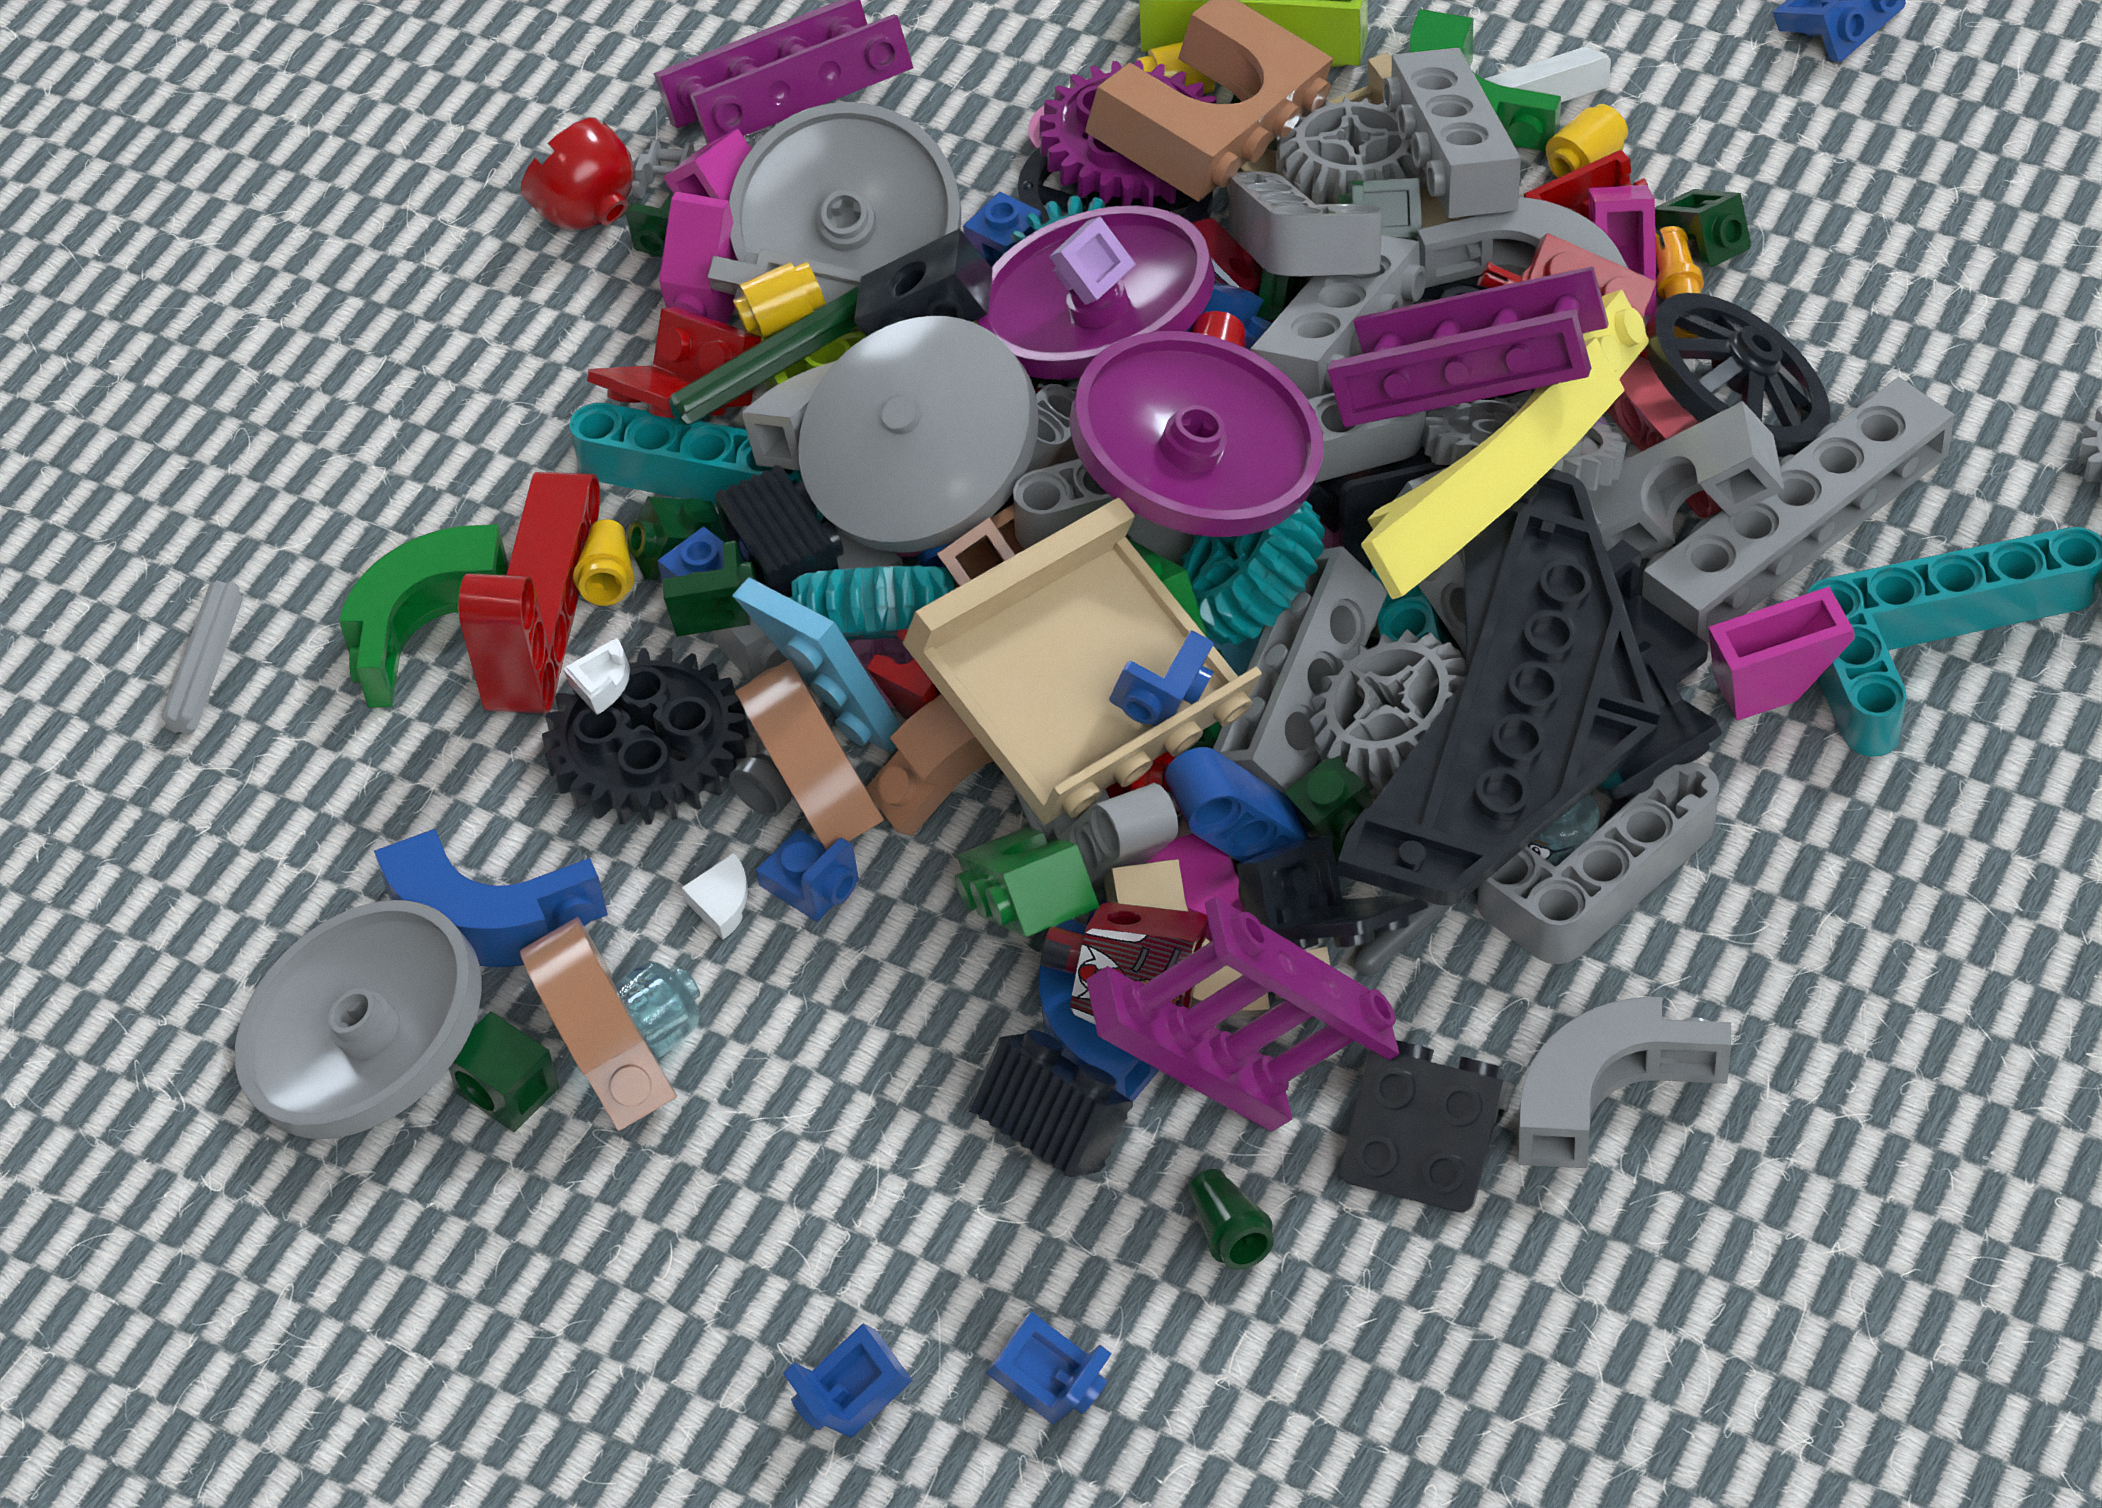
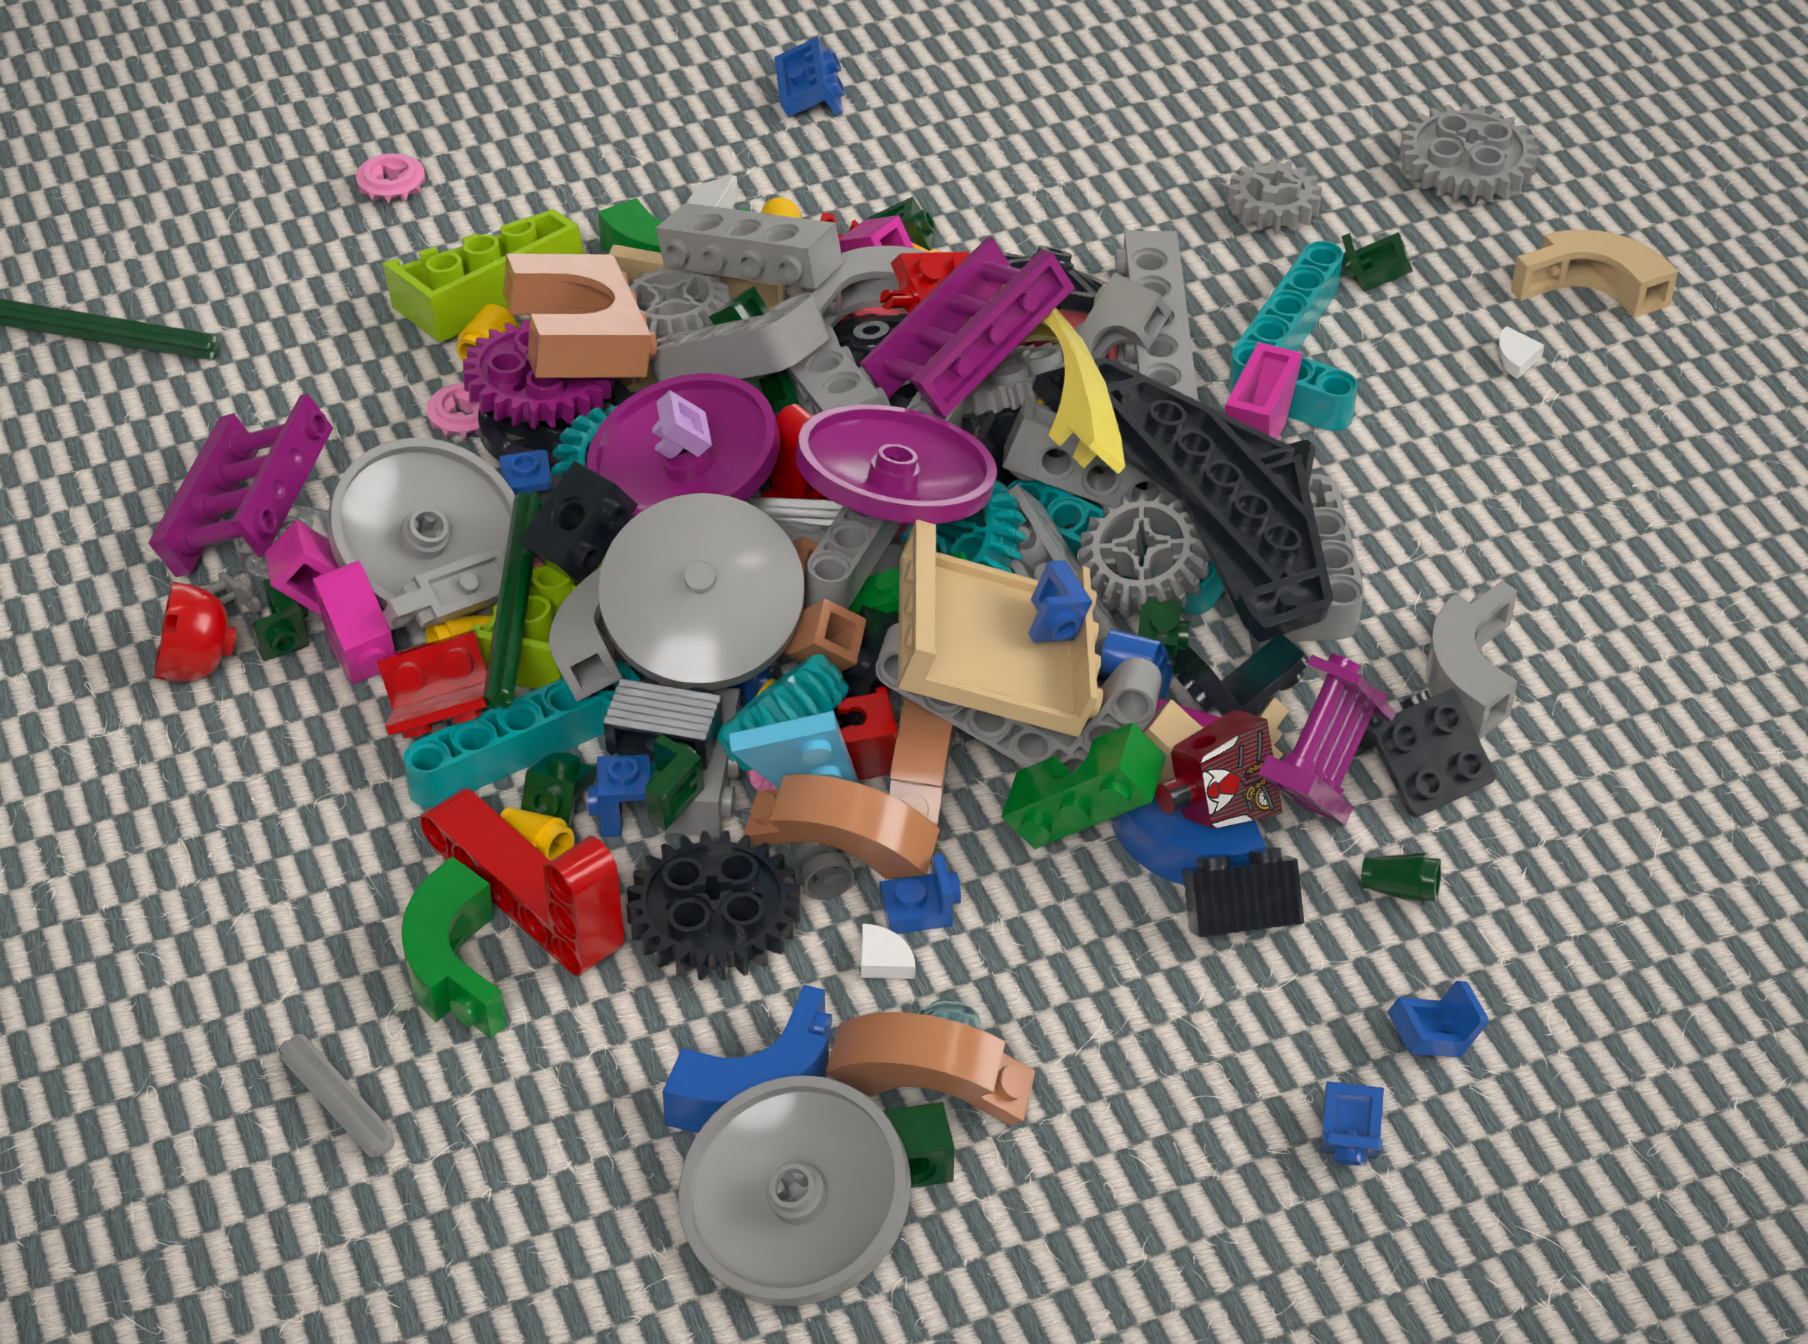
camera: 55 degrees left, 5 degrees down
(600, 675) = (653, 887): white tile -> none
(778, 298) = (469, 594): yellow brick -> none

